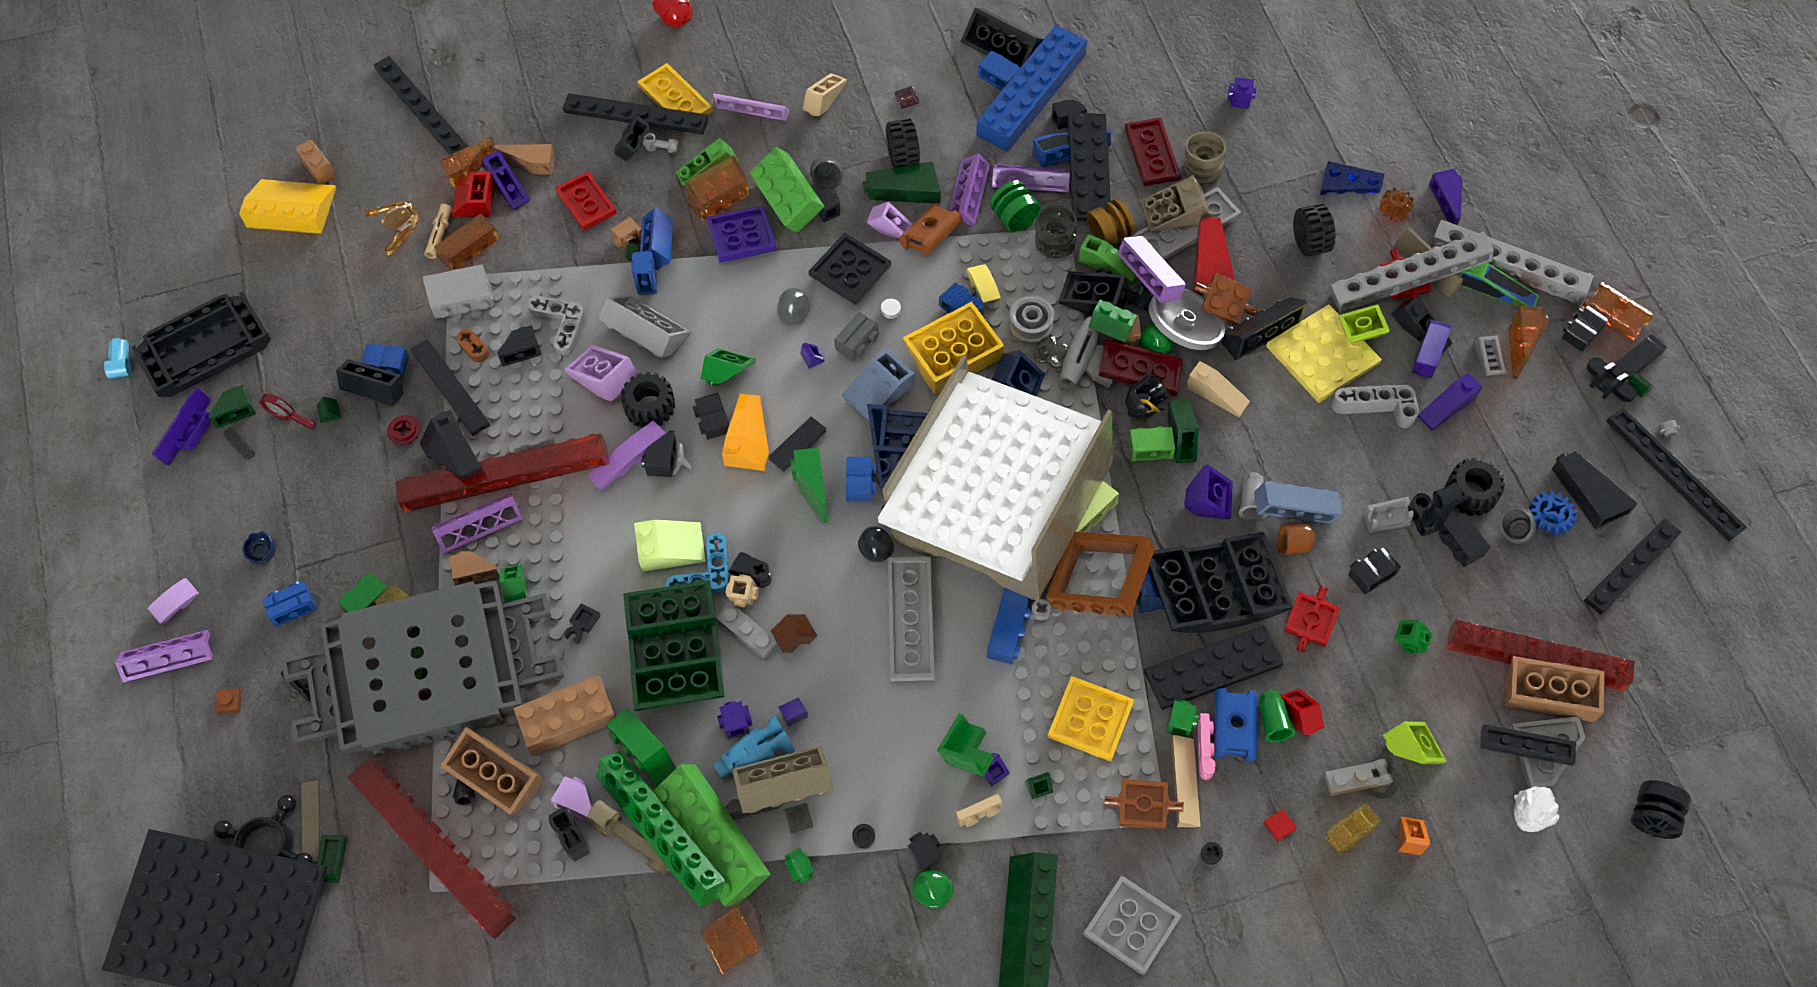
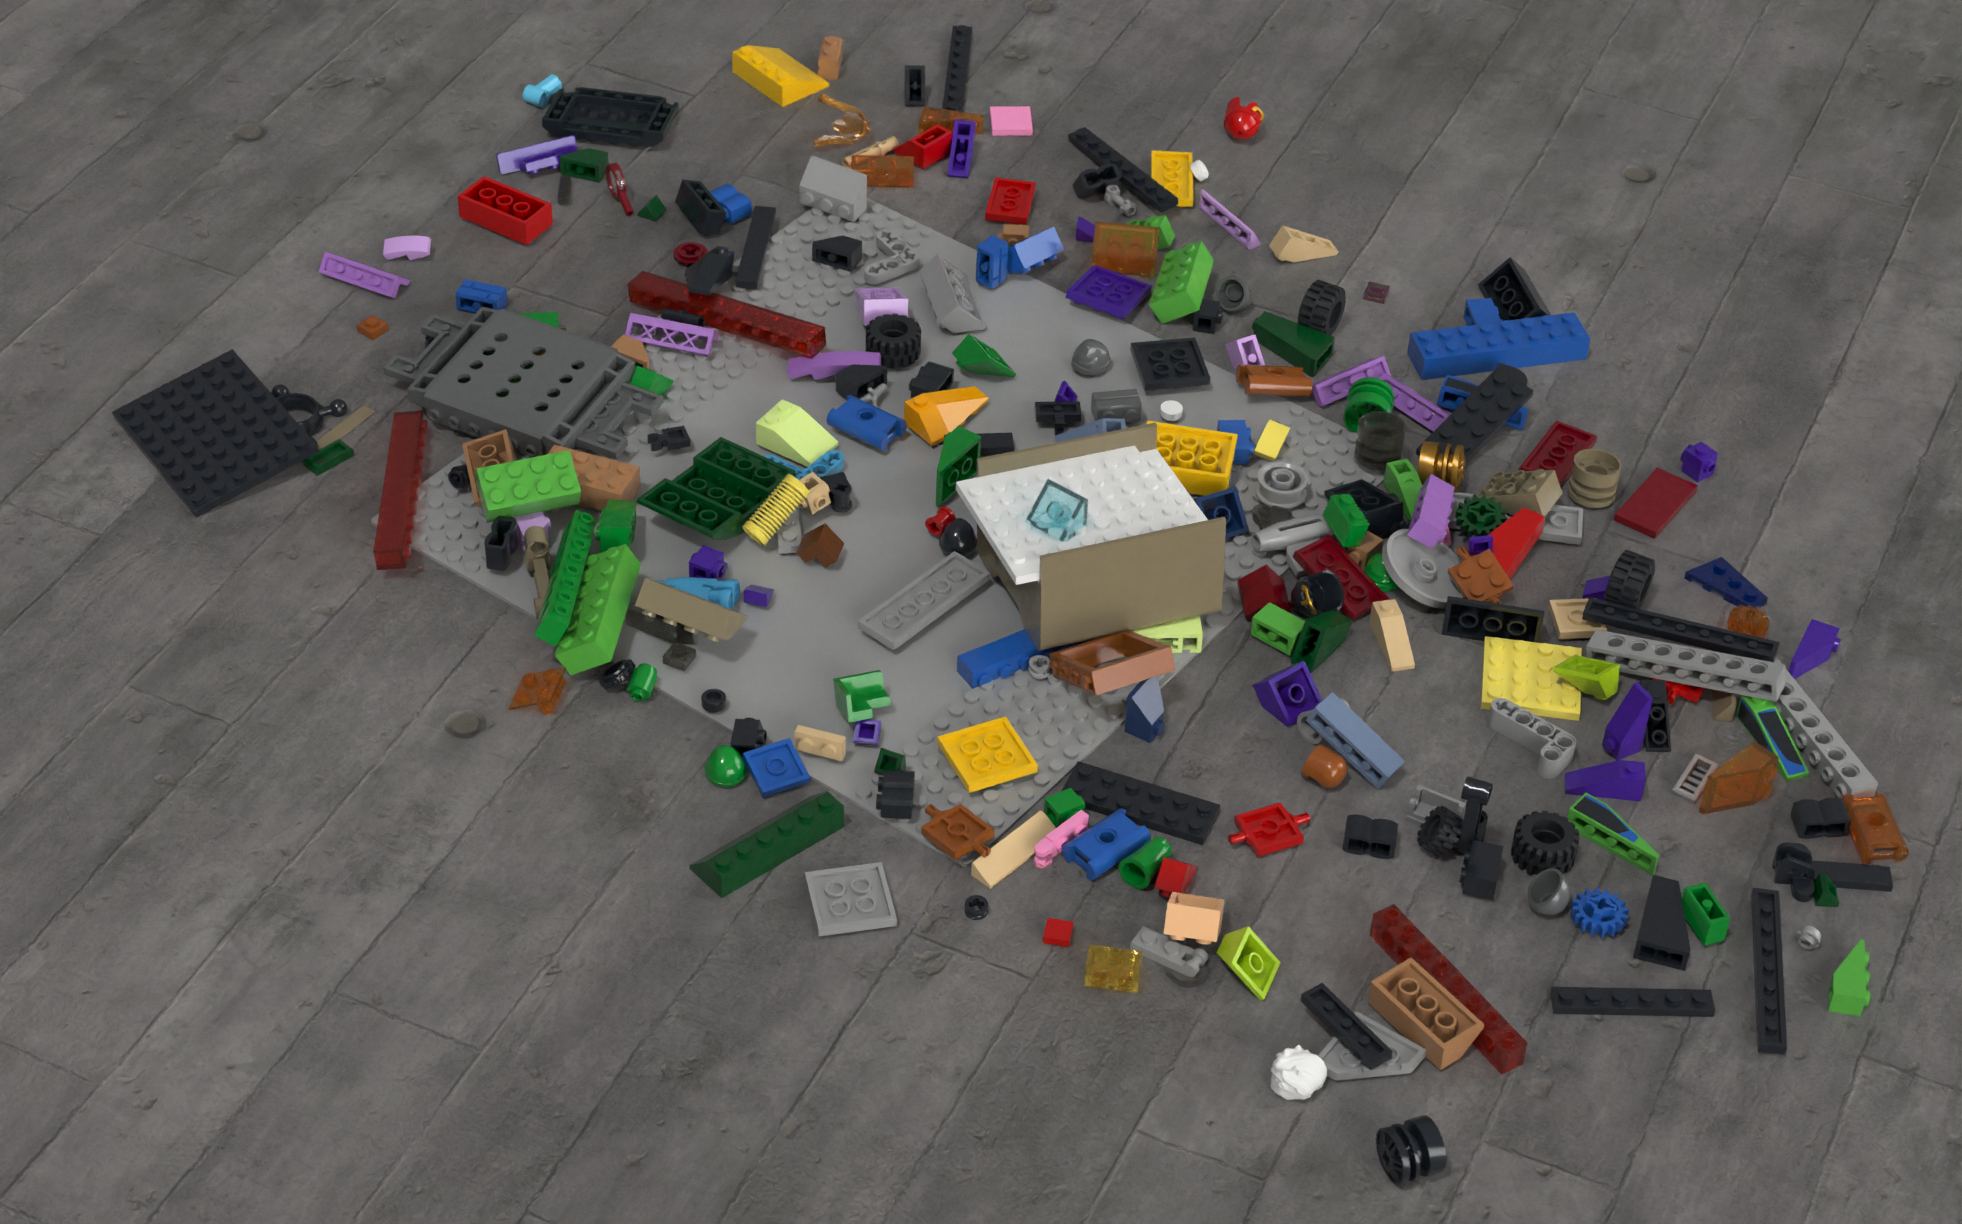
camera: 40 degrees right, 20 degrees down
(218, 503) = (505, 210): none -> red brick
(259, 547) = (501, 254): dark blue hair -> none
(407, 144) = (914, 85): none -> black slope
(469, 348) = (808, 233): dark orange beam -> none
(470, 500) = (682, 316): none -> black pin
(507, 124) = (1011, 121): none -> bright pink tile
(530, 158) = (1000, 149): medium nougat slope -> none
(548, 772) = (528, 486): none -> bright green brick
(665, 188) = (1084, 230): none -> dark purple slope
(687, 75) = (1199, 170): none -> white tile
(691, 486) = (866, 422): none -> blue piece
(746, 602) = (794, 491): none -> light yellow piece
(774, 863) = (617, 673): none -> black gear
(824, 372) = (1058, 413): none -> black plate
(848, 538) = (937, 523): none -> red bush
(968, 857) = (776, 767): none -> blue plate
(995, 497) = (1058, 512): none -> clear light blue slope
(1074, 808) = (896, 795): none -> black brick
(1121, 421) = (1261, 588): none -> dark red slope
(1176, 246) = (1479, 516): none -> dark green gear
(1203, 271) = (1479, 544): none -> dark purple slope
(1219, 584) = (1209, 748): black slope -> none
(1246, 146) = (1655, 502): none -> dark red tile
(1287, 246) = (1596, 588): none -> dark purple slope
(1302, 281) = (1568, 619): none -> tan plate
(1359, 740) = (1194, 917): none -> light nougat piece
(1380, 246) = (1680, 630): none -> black plate
(1412, 836) = (1160, 1016): orange slope -> none
(1413, 636) = (1342, 895): green brick -> none
(1425, 530) = (1440, 830): none -> black tyre
(1490, 441) = (1607, 829): none -> bright green slope
(1612, 462) = (1705, 913): none -> green brick
(1722, 443) = (1849, 982): none -> bright green slope

